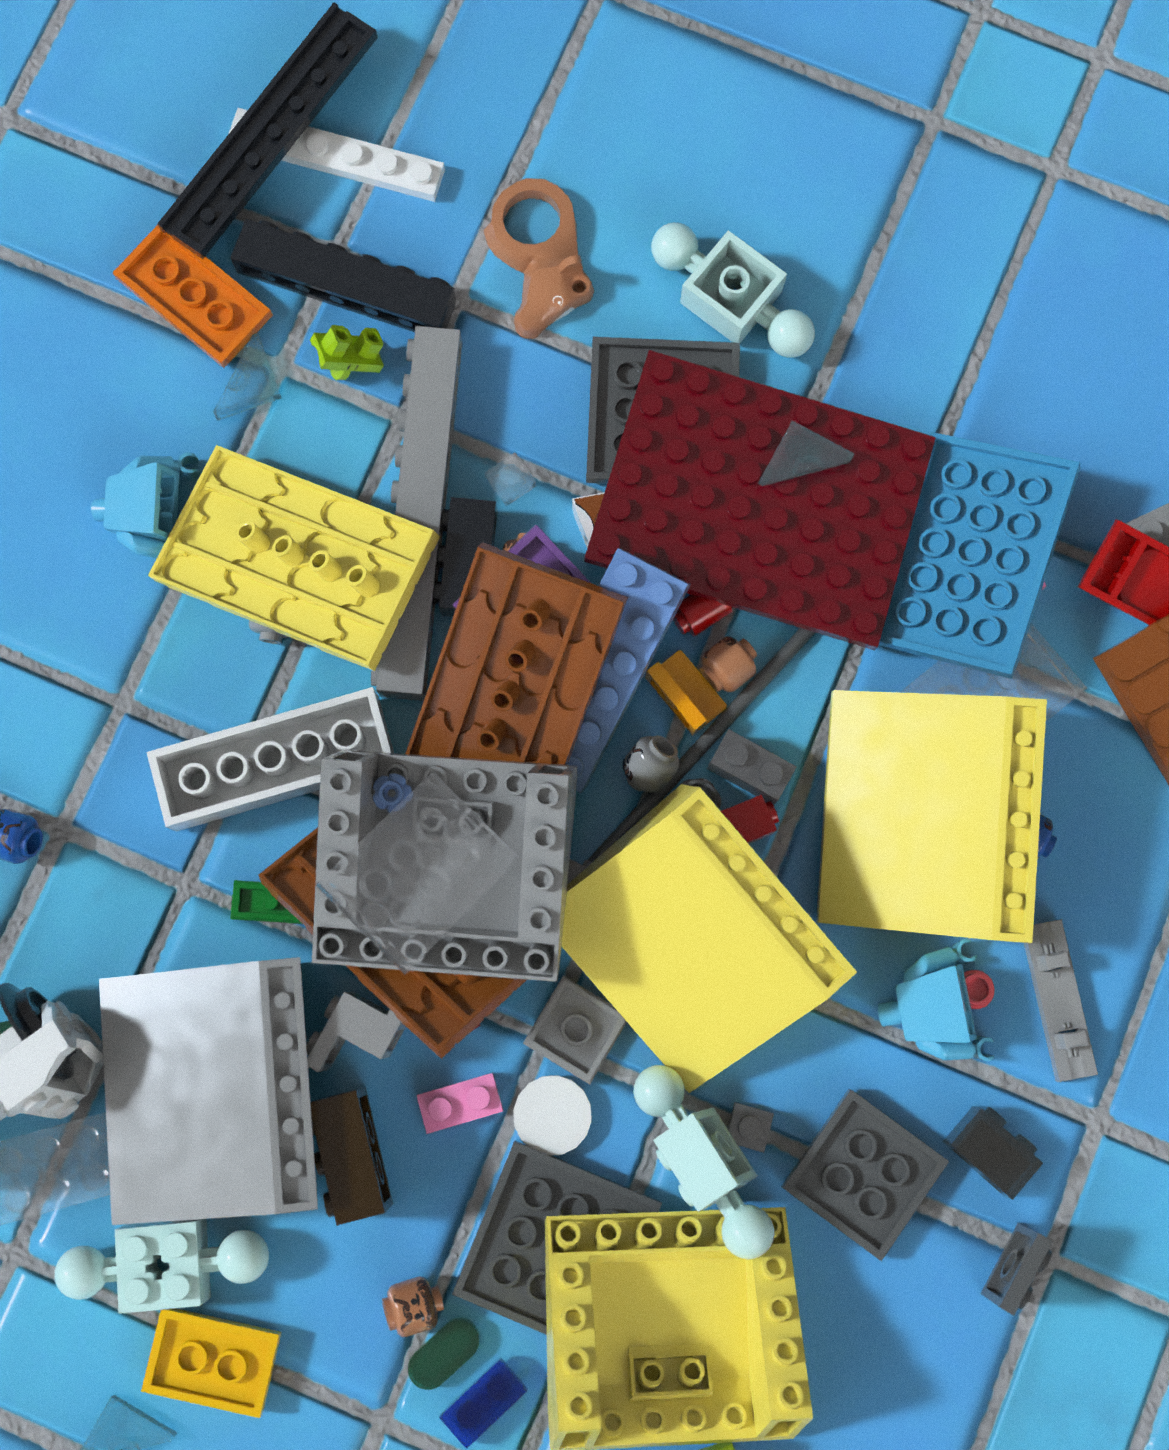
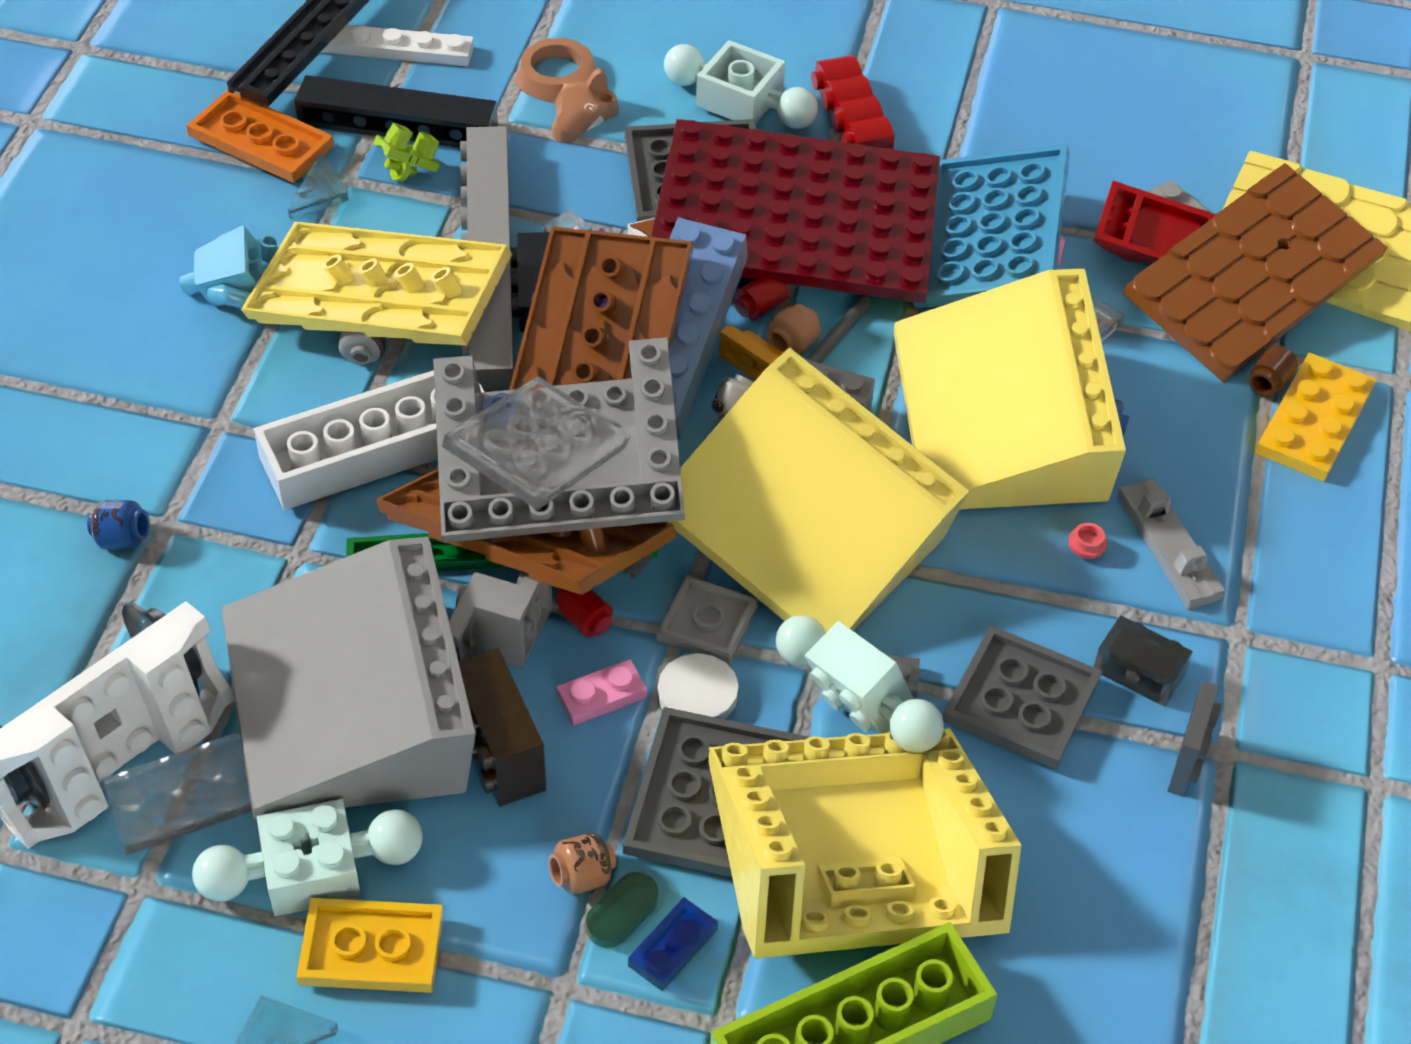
camera: 10 degrees left, 30 degrees down
(801, 454) = (828, 166): clear light blue tile -> none
(855, 335) = (851, 102): none -> red brick
(936, 1006) = (1057, 552): medium azure torso -> none

